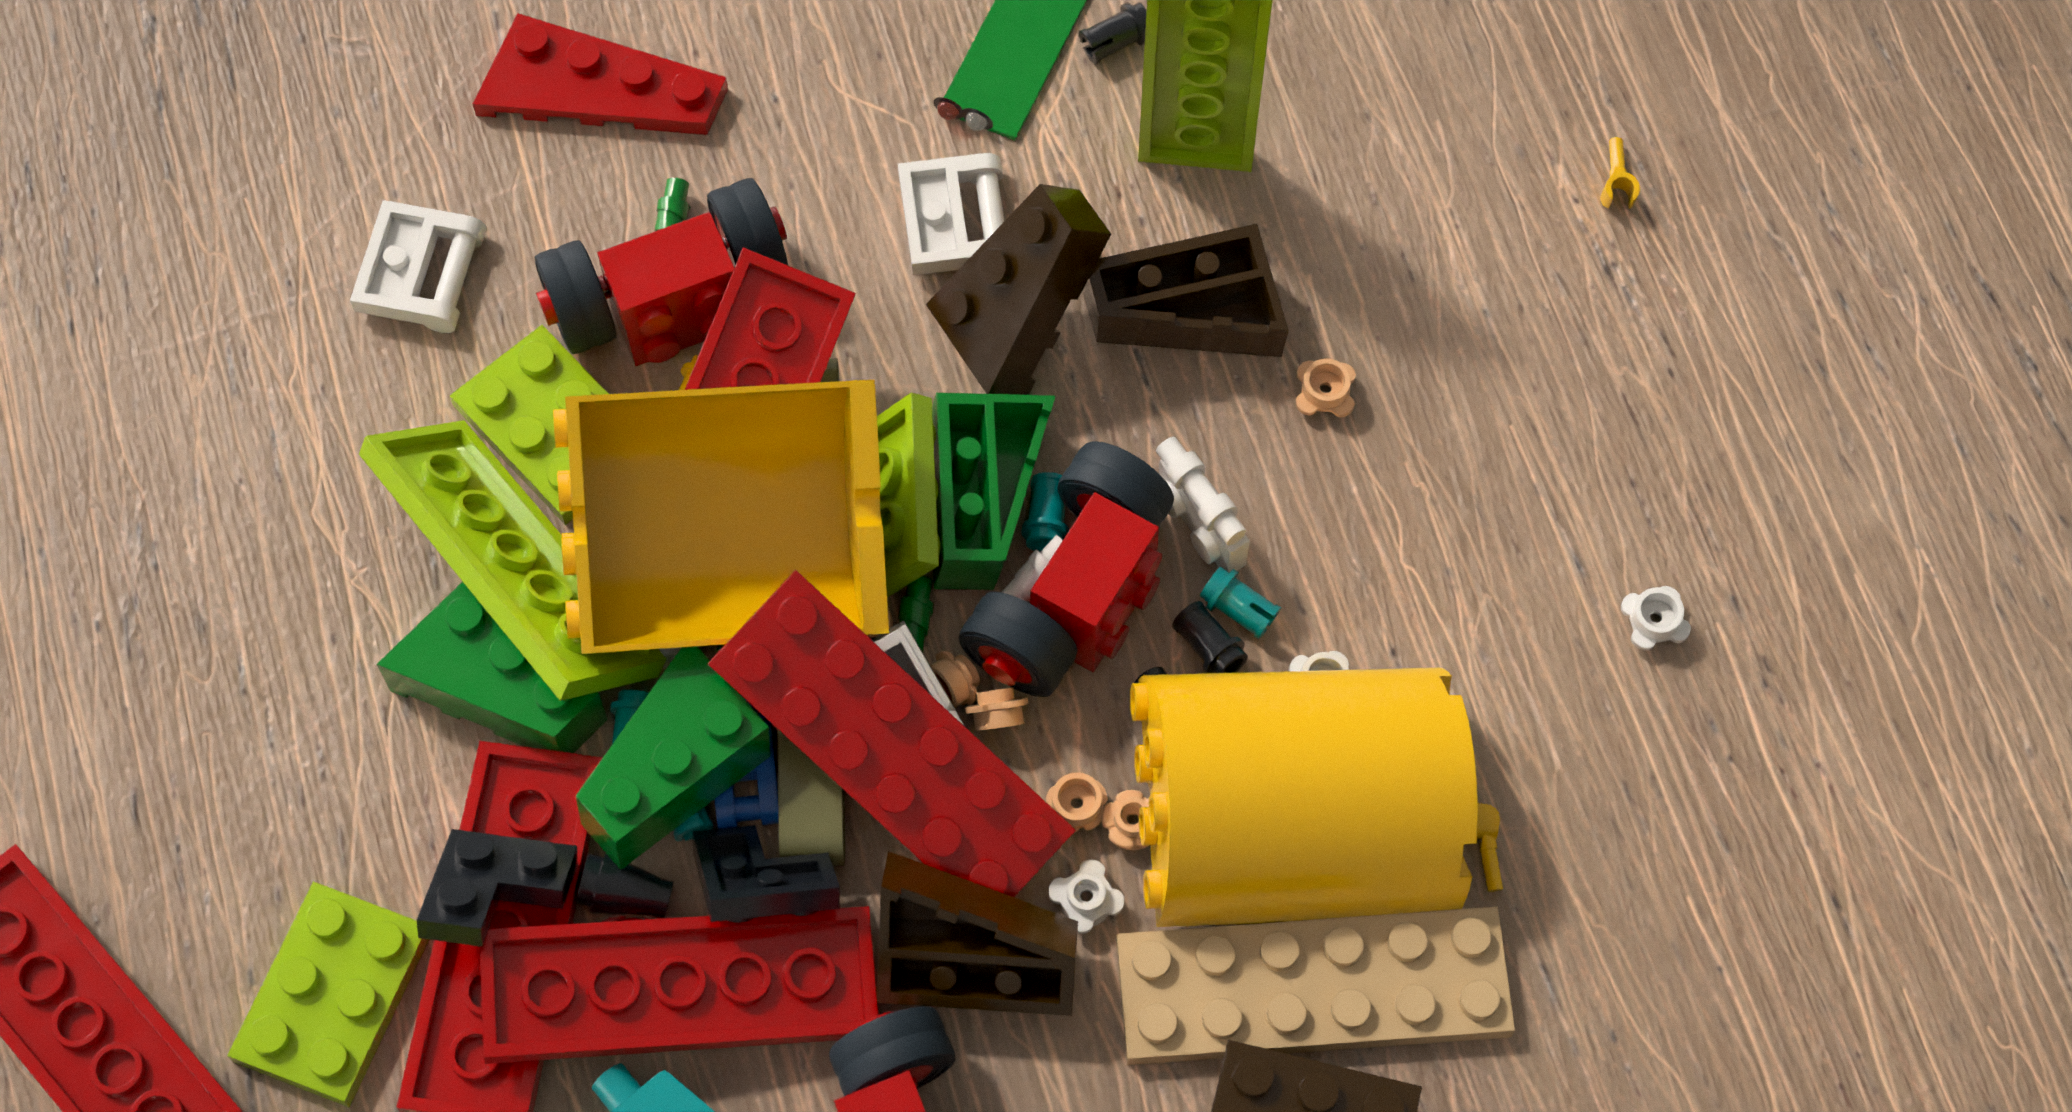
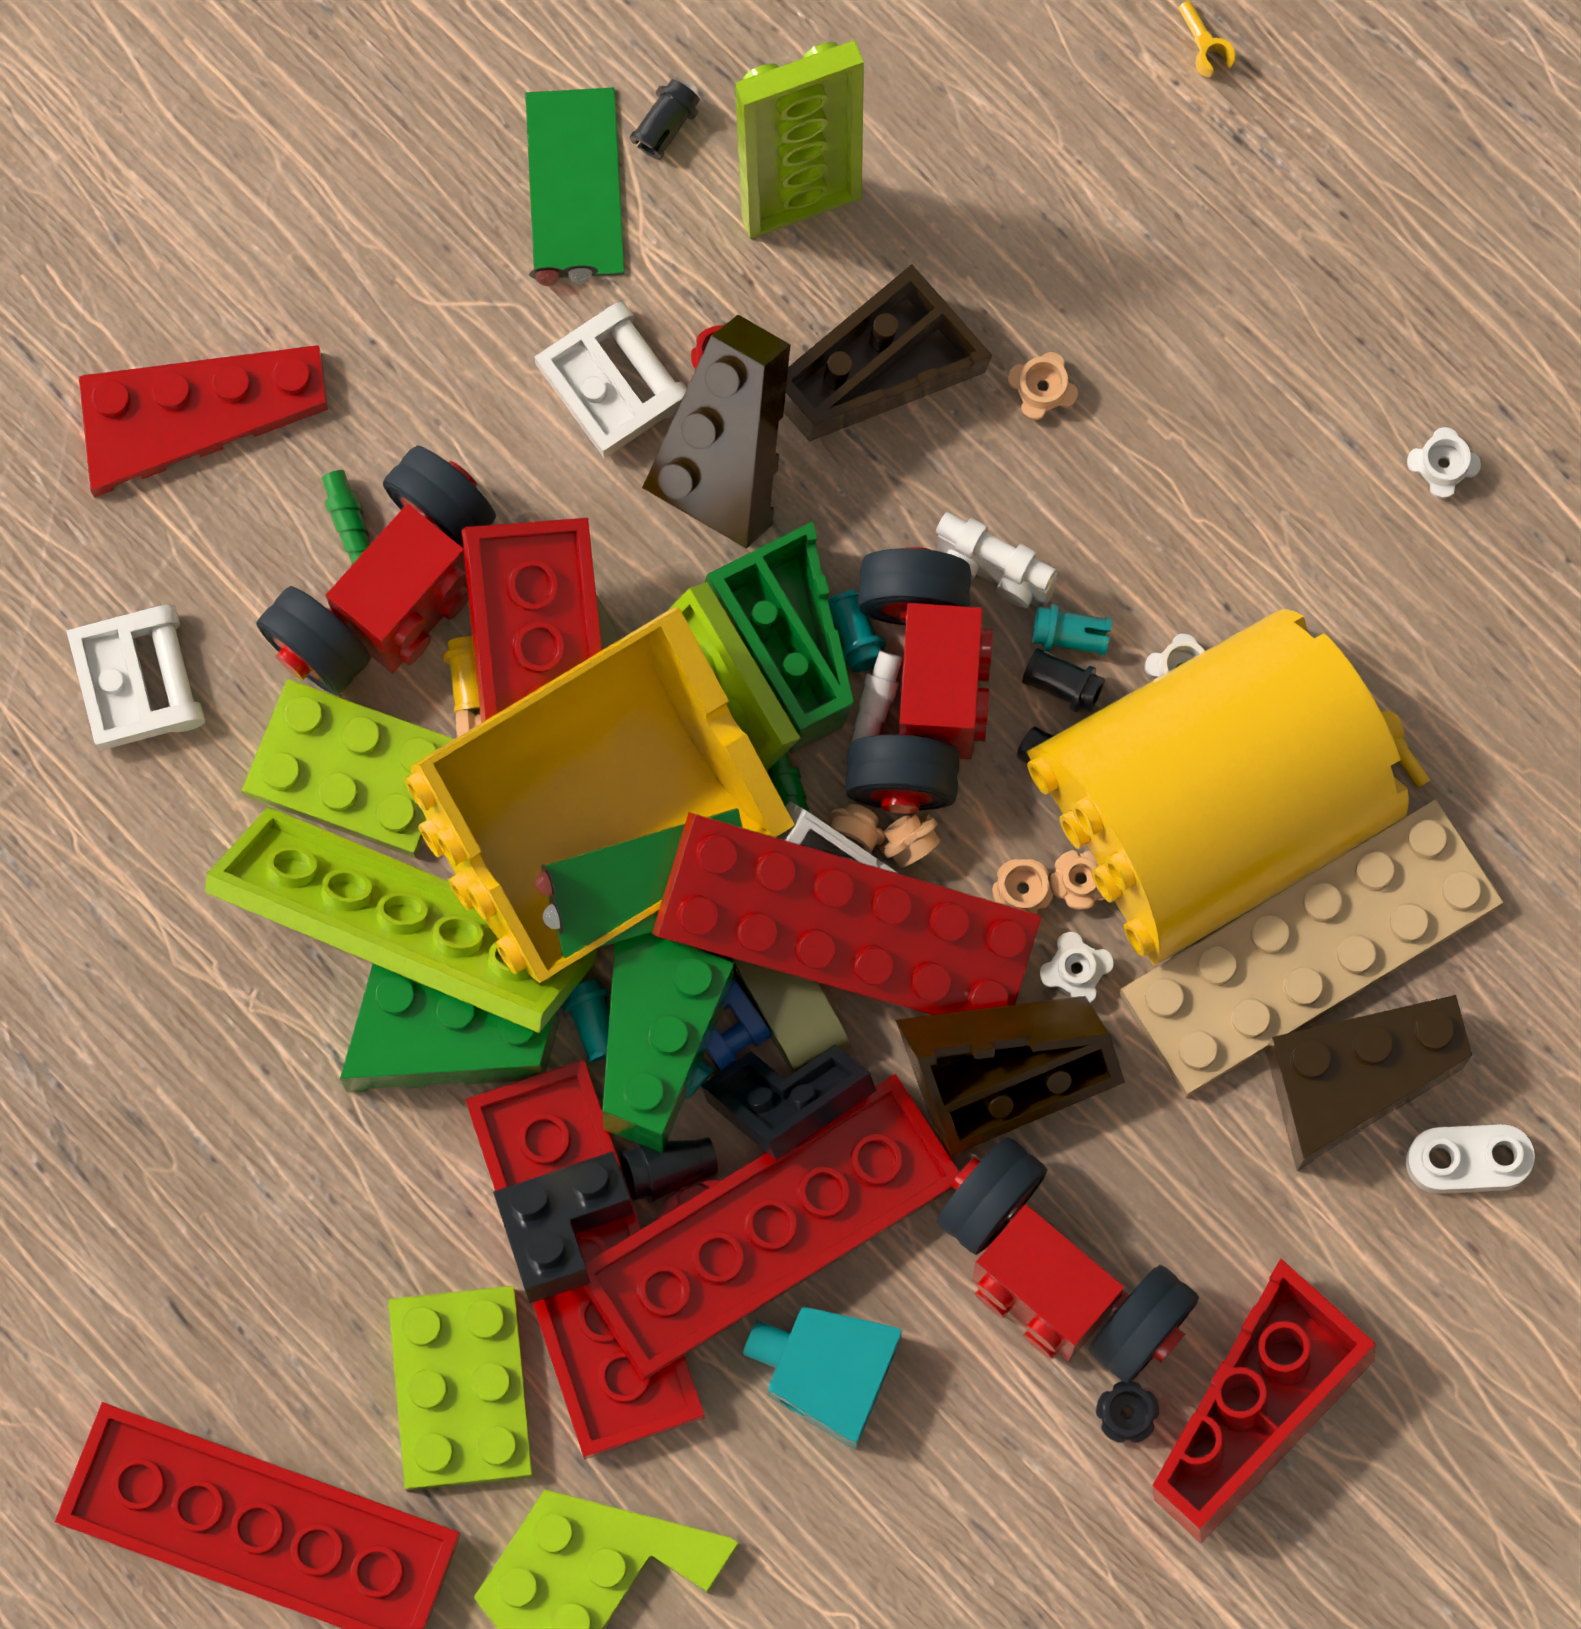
camera: 25 degrees left, 10 degrees up
(689, 601) = (610, 886): none -> green piece

